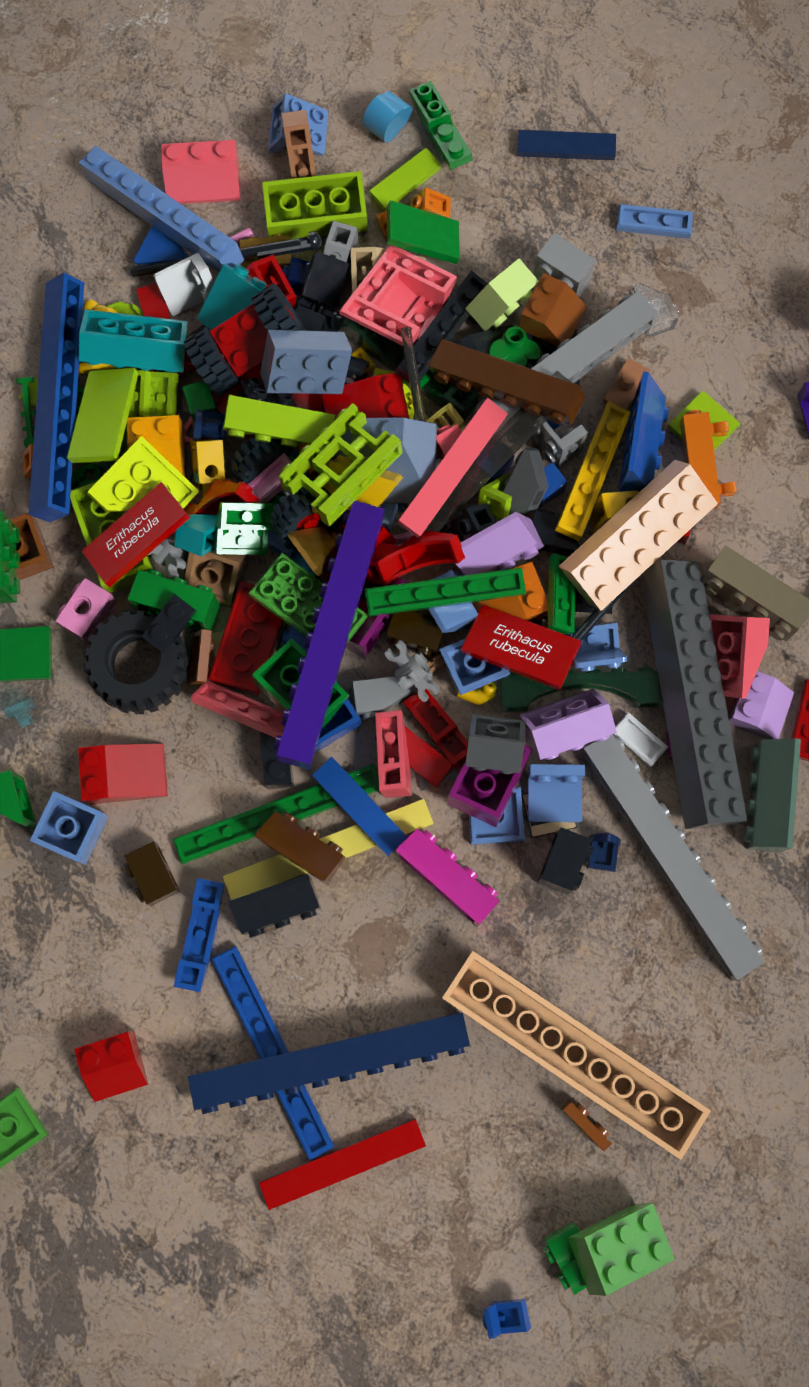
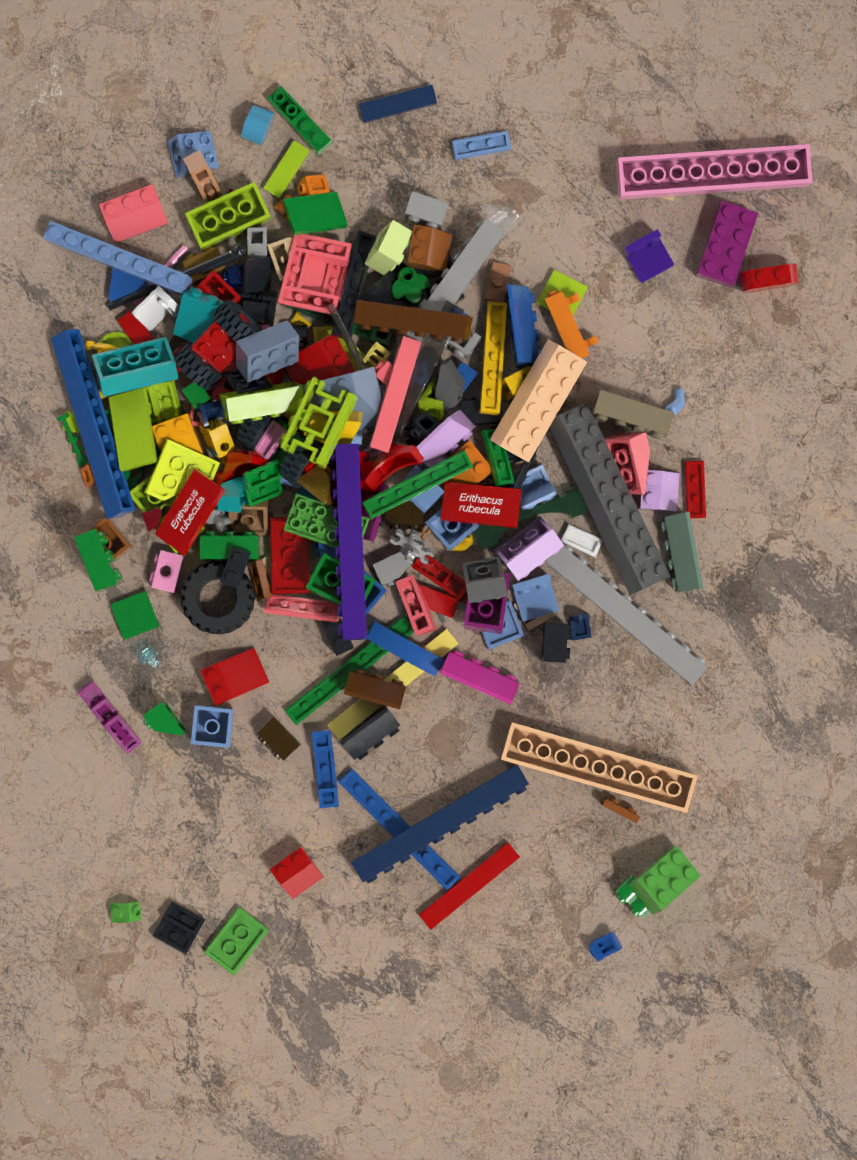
camera: 20 degrees left, 10 degrees up
(86, 531) = (152, 518): none -> dark red tile

